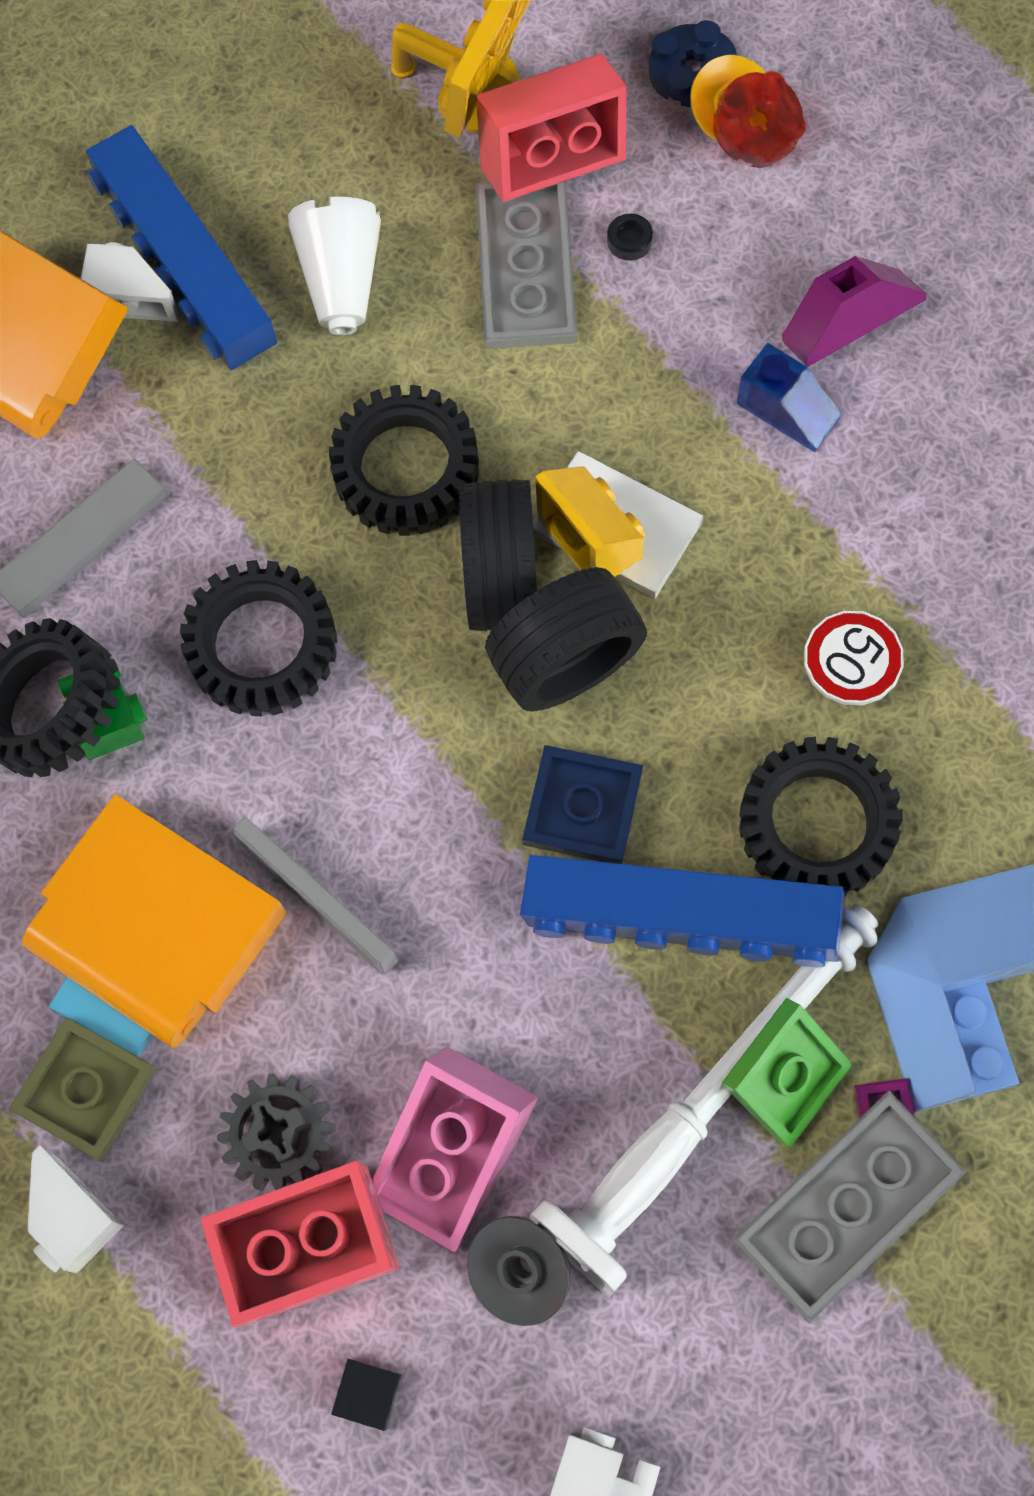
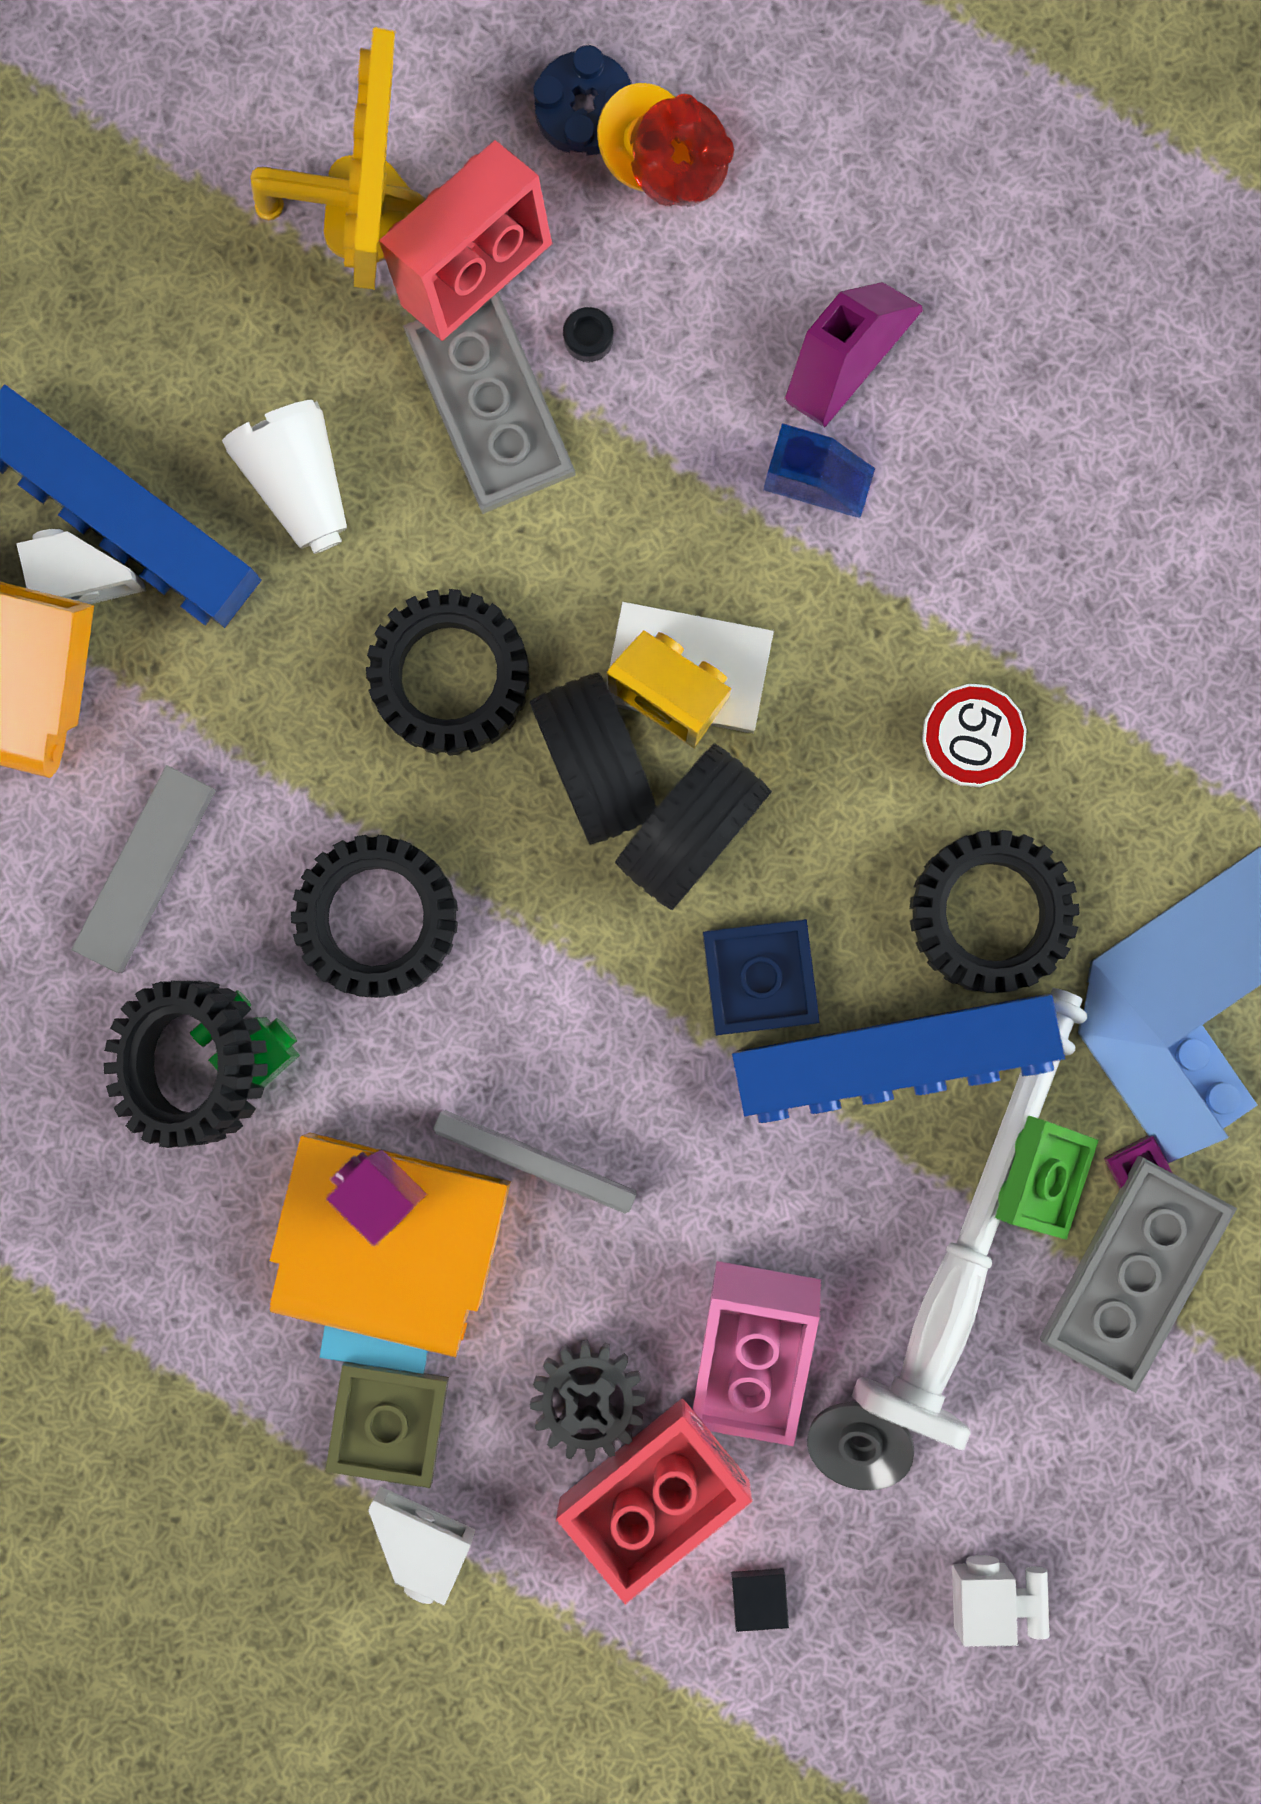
camera: 25 degrees left, 15 degrees up
(156, 851) = (374, 1194): none -> magenta brick

